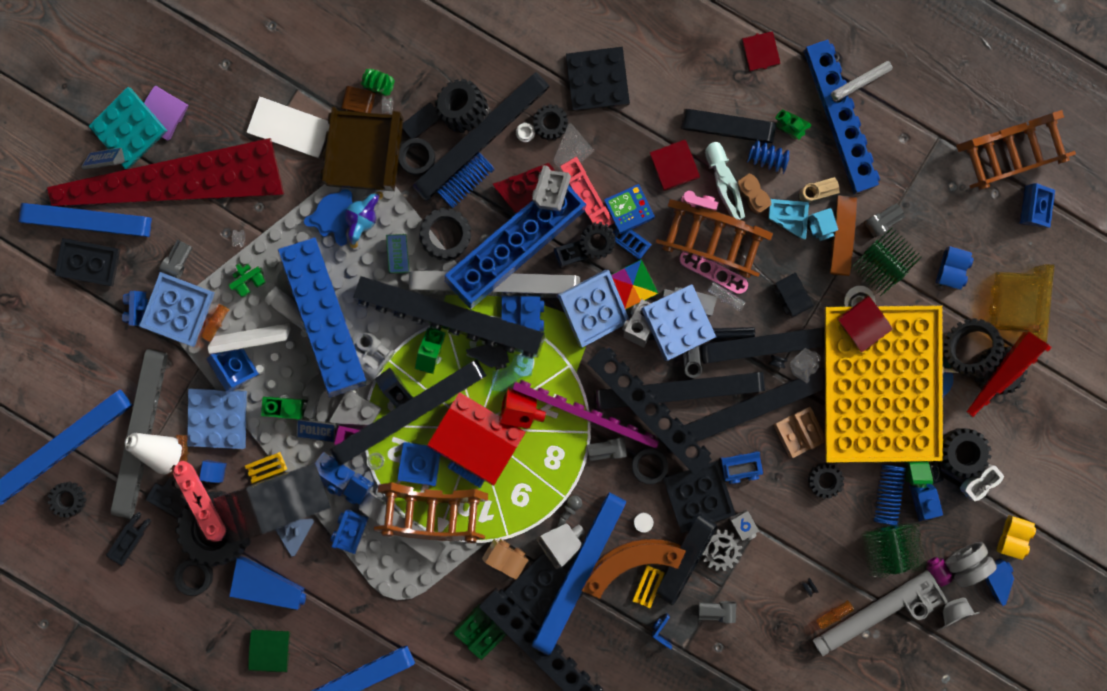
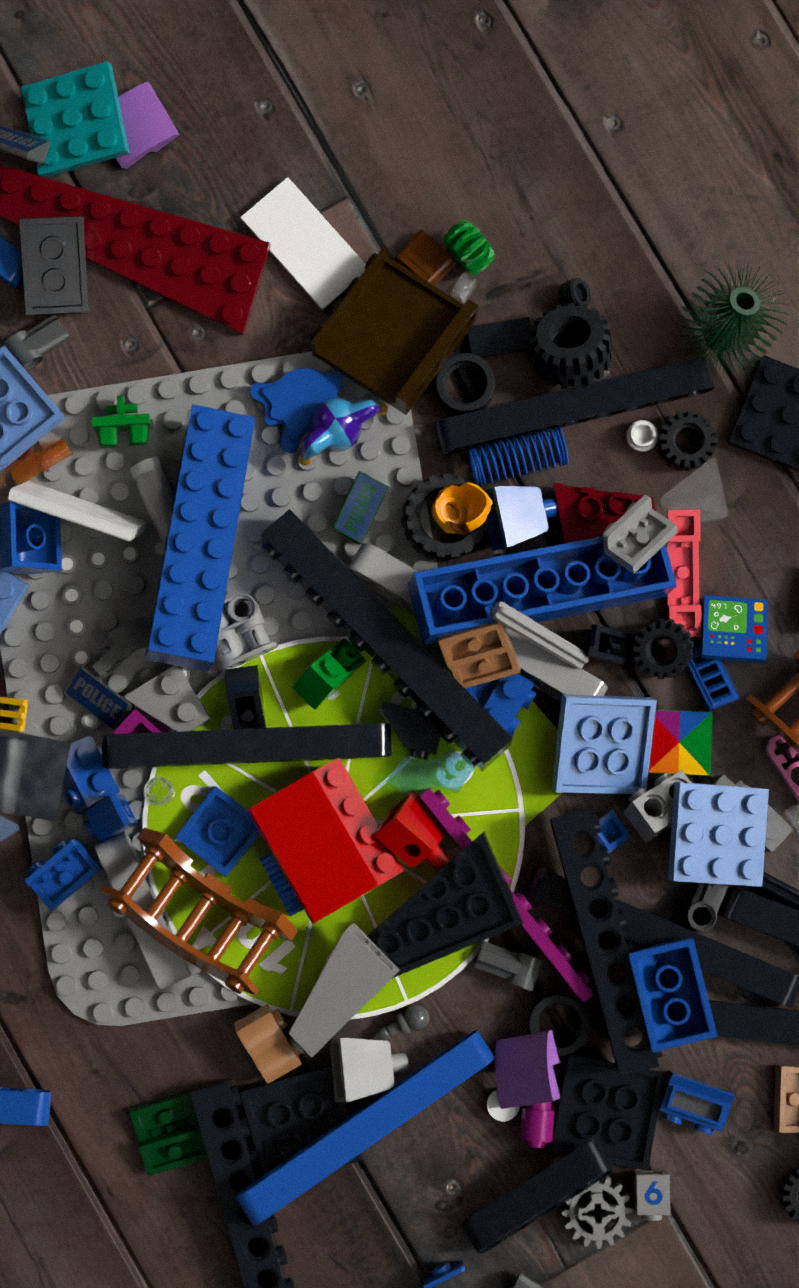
camera: 35 degrees right, 5 degrees down
(161, 213) = (53, 265): none -> black plate
(238, 238) = (143, 360): clear bush -> none
(282, 407) = (68, 637): green slope -> none
(447, 75) = (575, 292): none -> black tile
(450, 225) = (461, 508): none -> light orange hair
(481, 212) = (517, 514): none -> torso
(503, 298) = (480, 654): none -> medium nougat slope
(528, 270) = (539, 635): none -> light grey axle
(528, 506) = (346, 984): none -> light grey slope
(536, 45) = (731, 319): none -> dark green piece
(559, 444) = (451, 911): none -> black wing
(623, 351) = (612, 832): none -> blue tile
(629, 556) = (454, 1143): dark orange fence -> none
(642, 601) = (436, 1223): yellow tile -> none
(645, 499) = (526, 1069): none -> medium lavender slope
(666, 522) = (537, 1124): none -> magenta brick
(698, 419) = (672, 994): none -> blue slope

